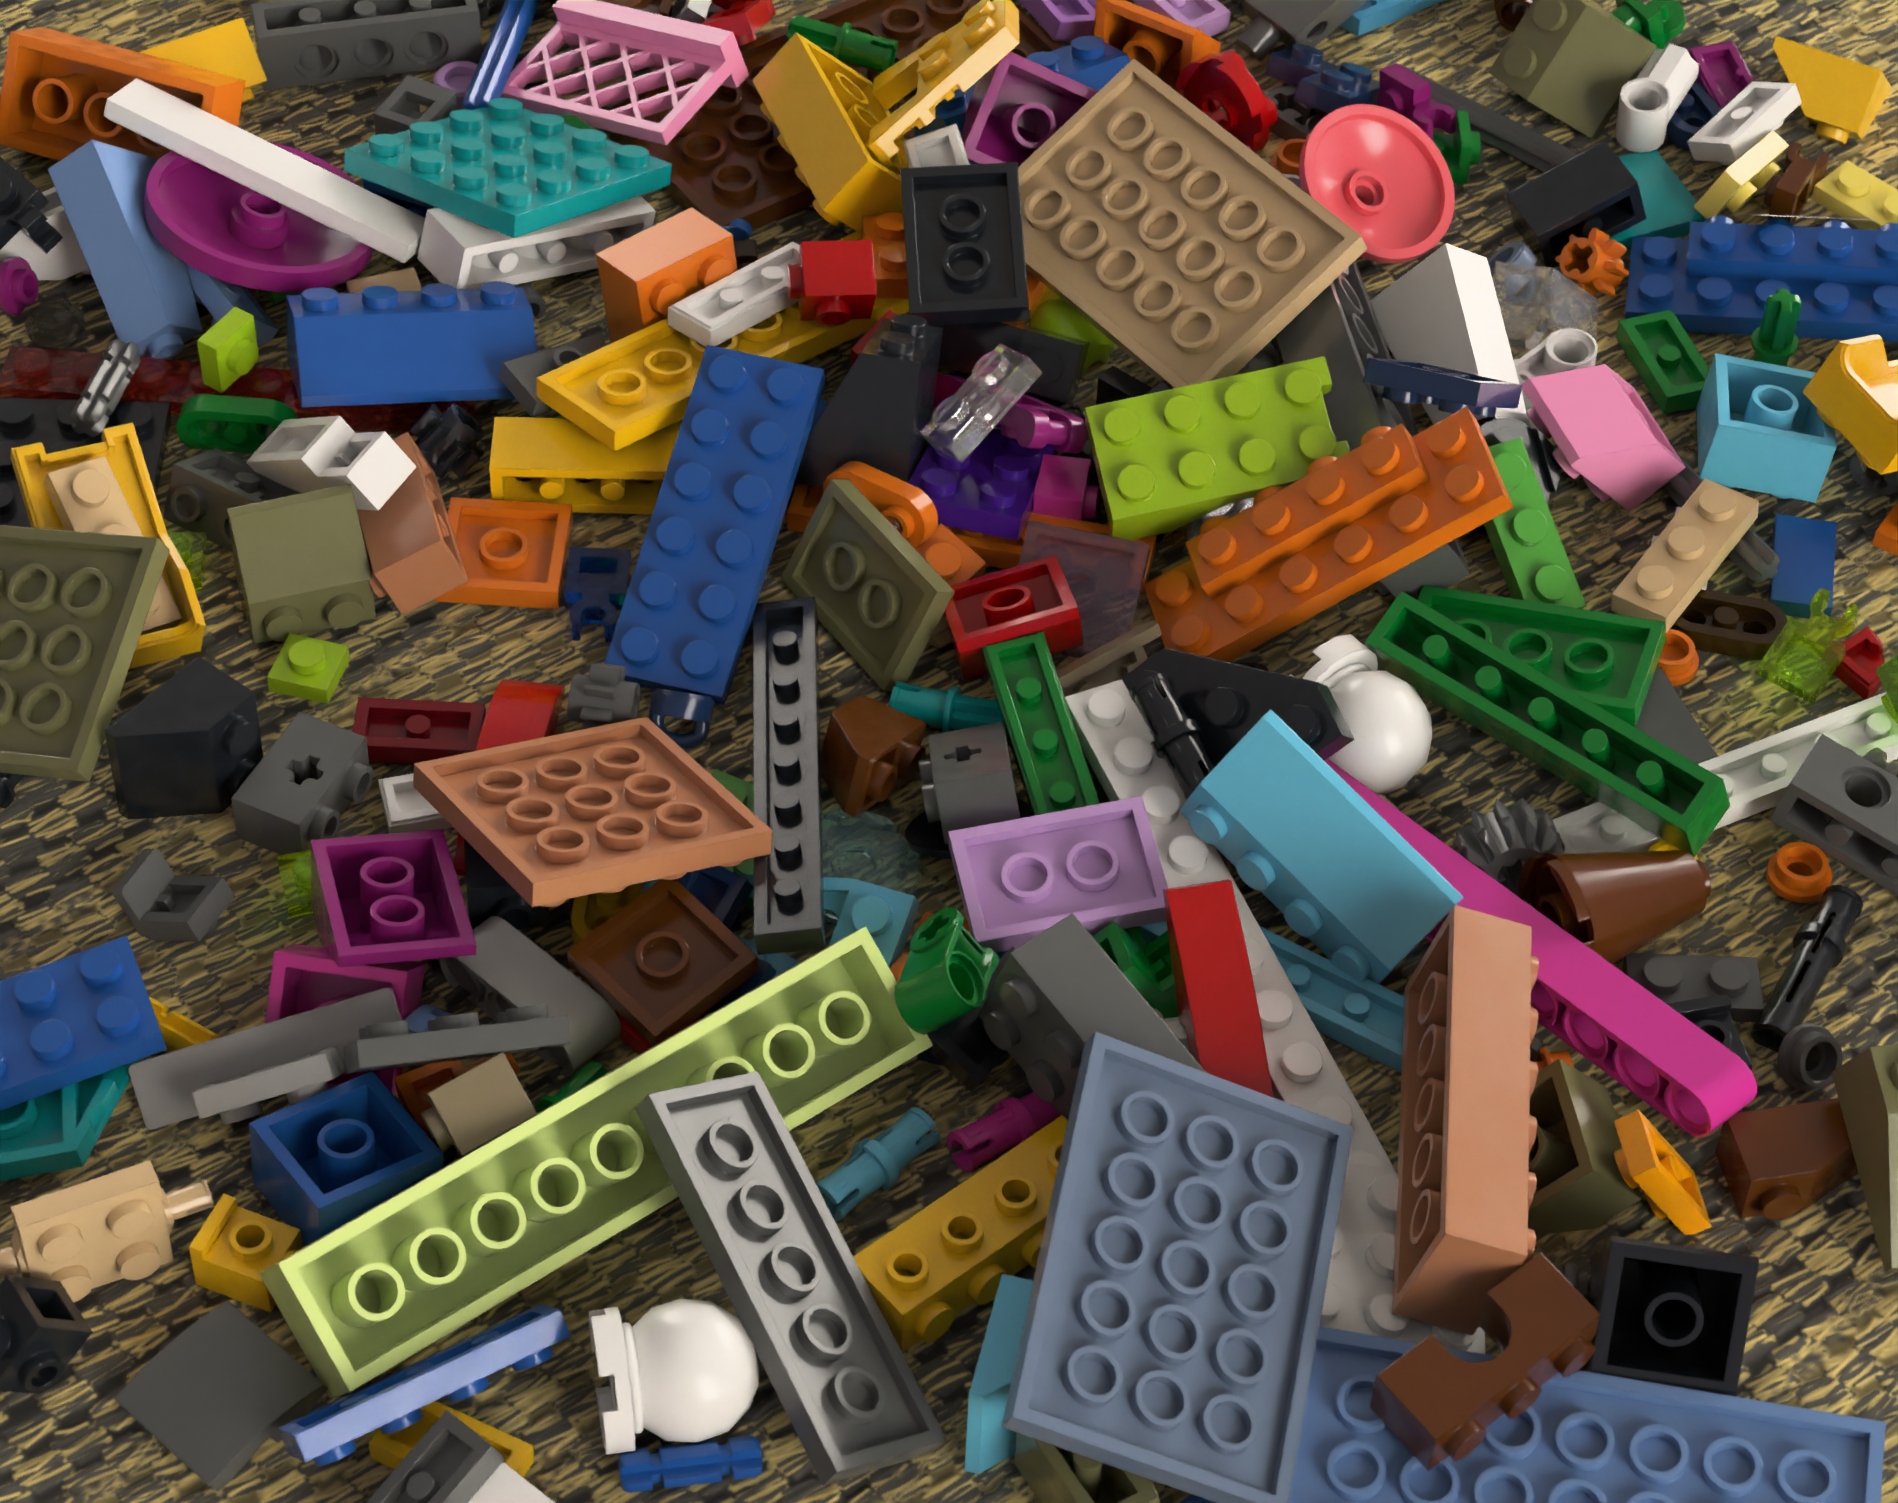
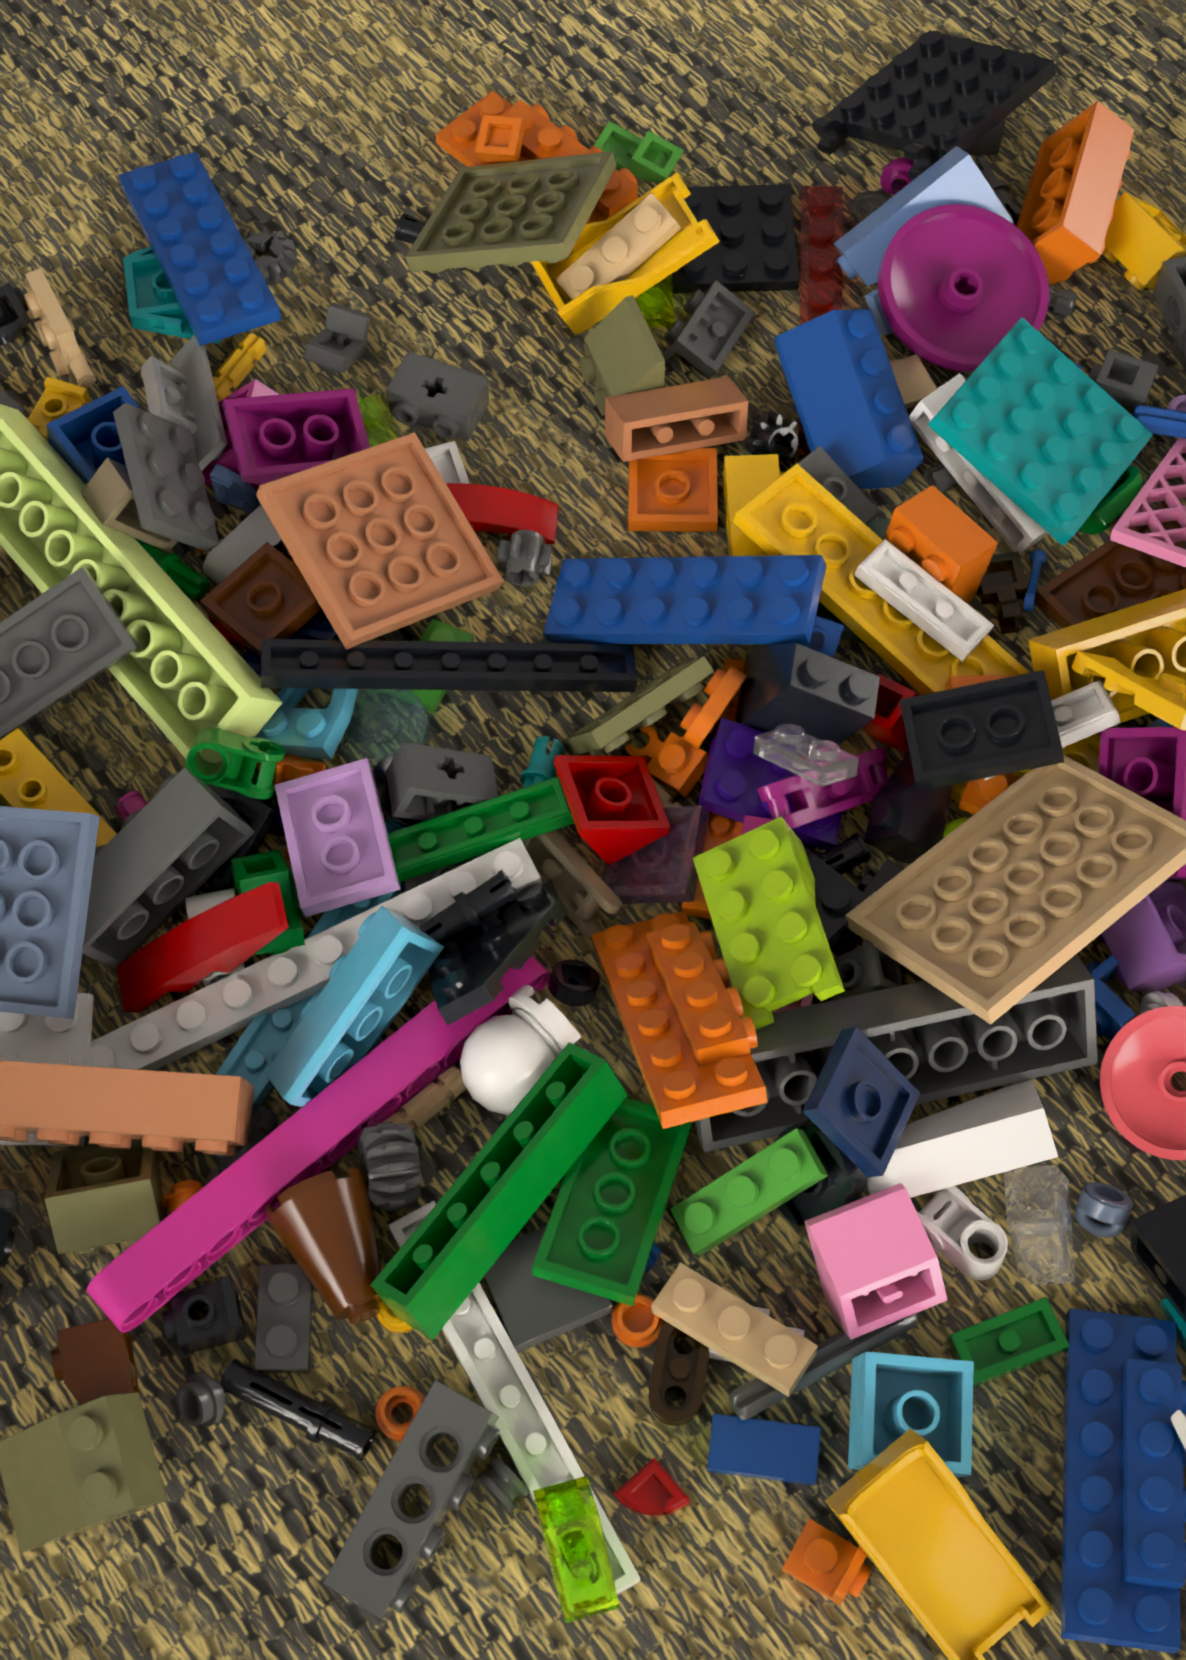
camera: 90 degrees right, 15 degrees up
(105, 388) = (790, 235): dark grey axle -> none
(185, 745) = (456, 319): black slope -> none
(228, 349) = (828, 291): lime plate -> none
(229, 422) = (780, 306): green plate -> none
(267, 169) = (1003, 272): white tile -> none
(308, 668) = (558, 392): lime plate -> none
(328, 454) = (711, 361): white slope -> none
(417, 729) = (497, 452): dark red plate -> none
(596, 587) = (642, 543): clear blue plate -> none
(683, 706) = (525, 608): dark blue tile -> none
(833, 281) = (924, 644): red brick -> none
(870, 752) = (472, 717): reddish brown slope -> none
(878, 1162) = (124, 753): medium azure pin -> none
(1594, 262) = (1117, 1276): orange gear -> none
(1661, 1173) = (65, 1262): light orange plate -> none
(1776, 336) = (1021, 1431): green axle -> none
(1807, 654) = (645, 1434): clear neon green plate -> none

